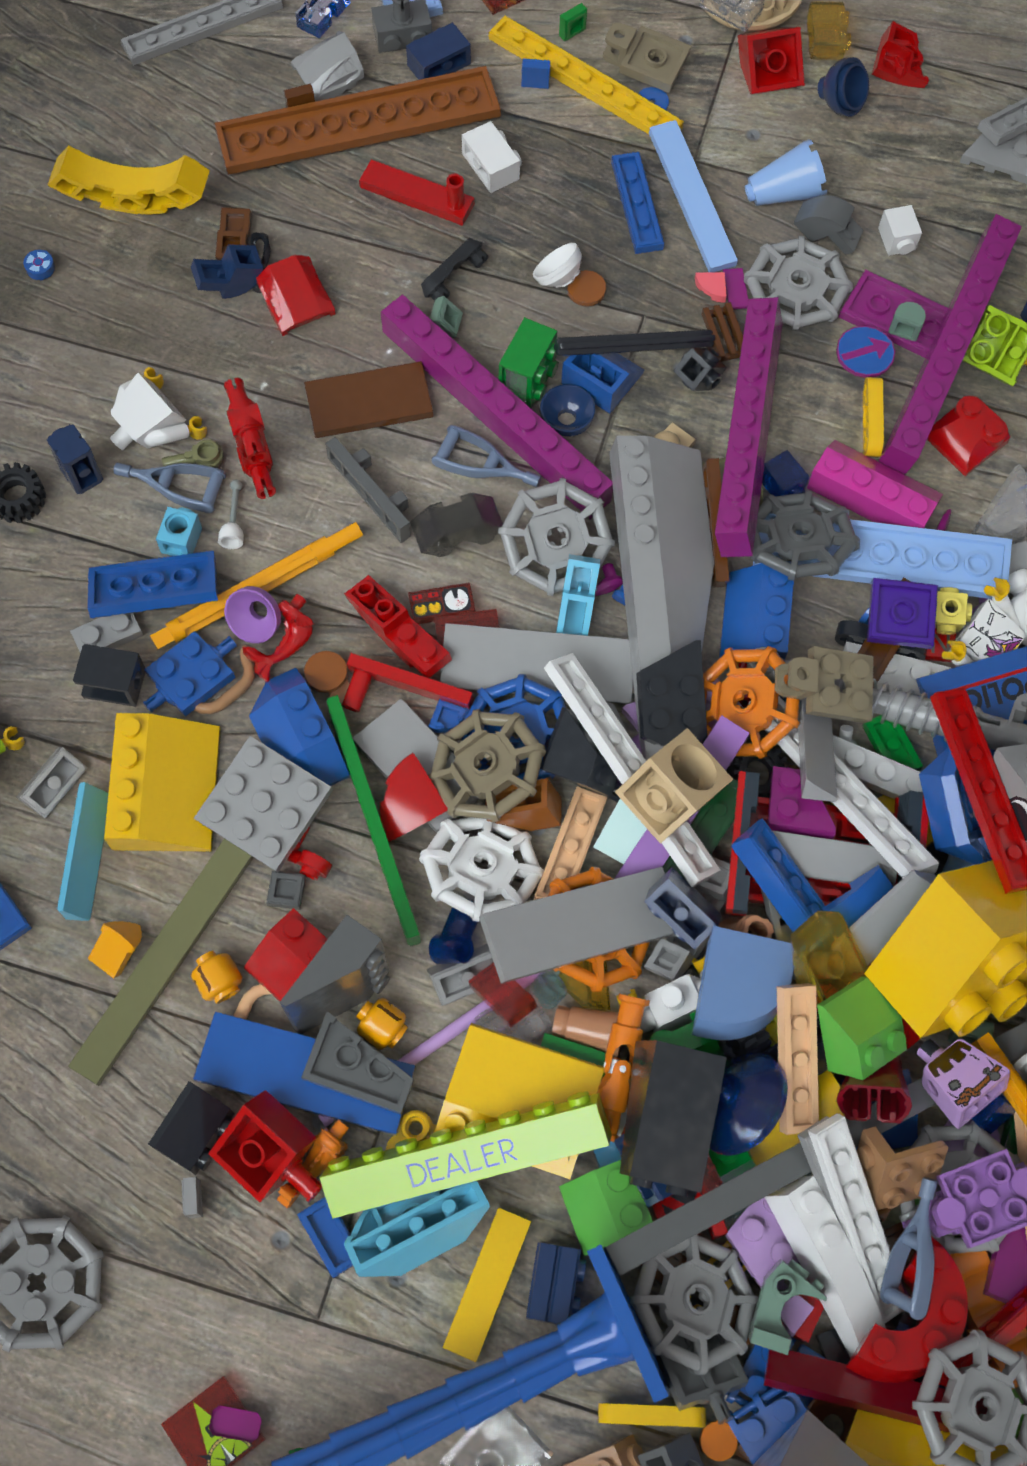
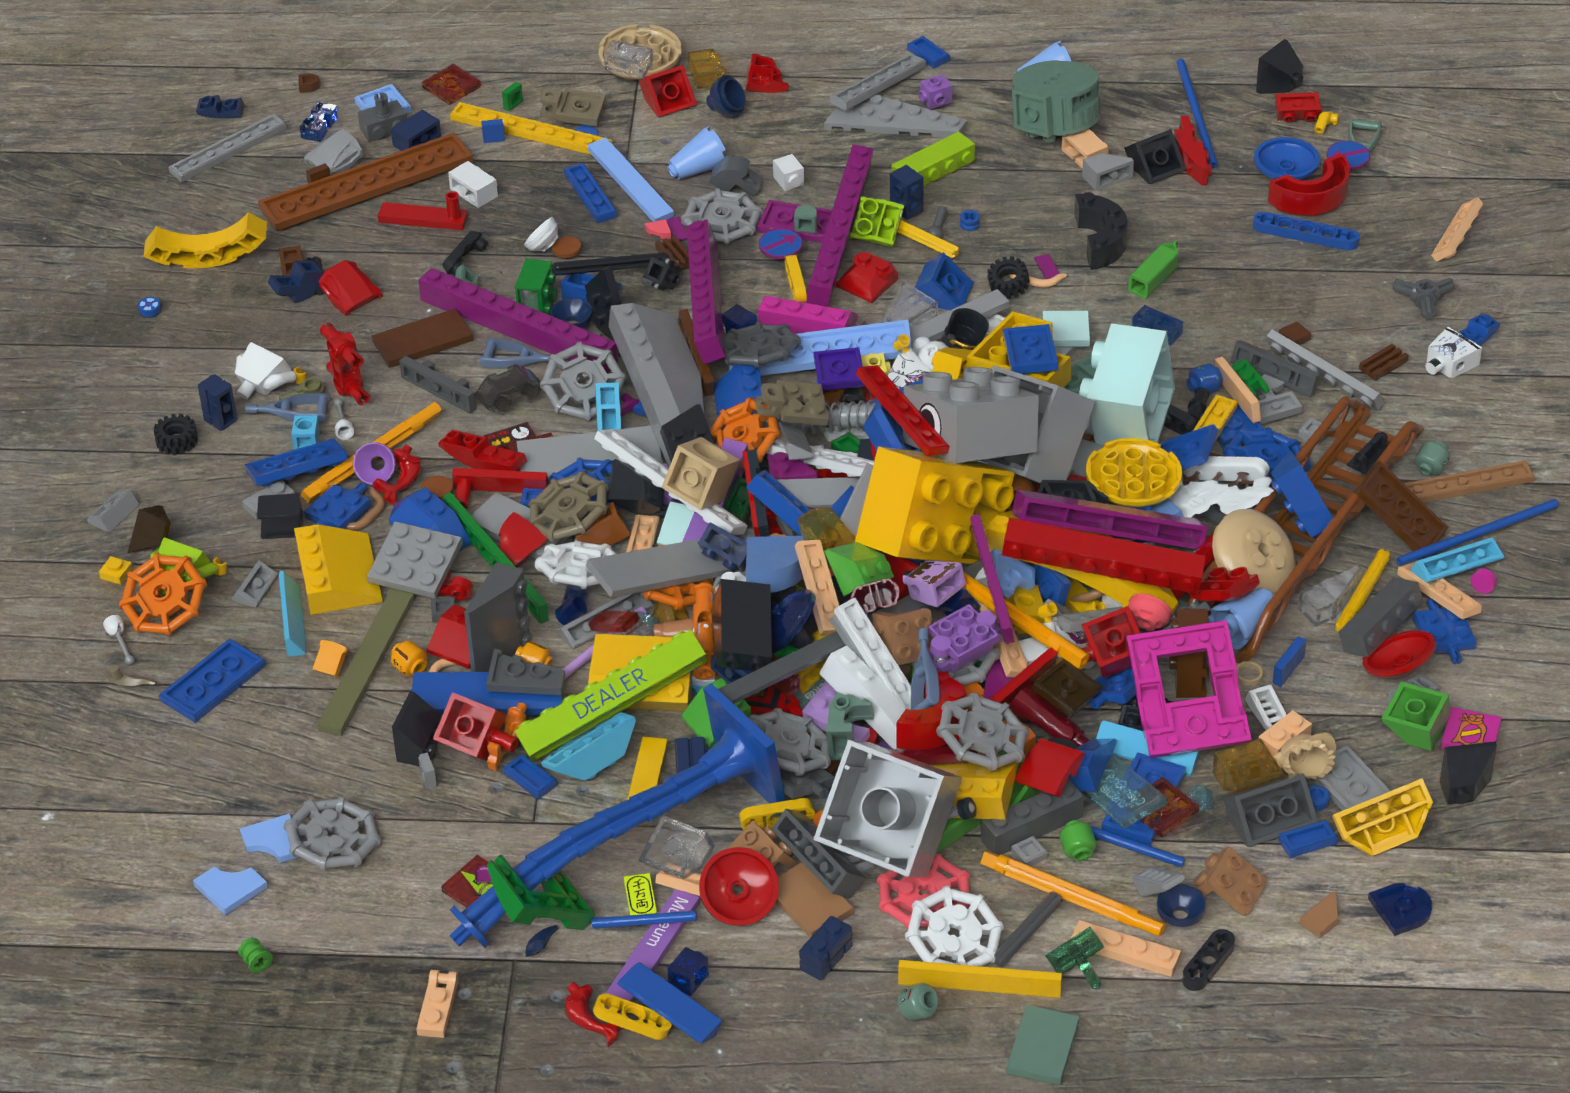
camera: 10 degrees left, 25 degrees down
(612, 410) = (601, 295): none -> black wing

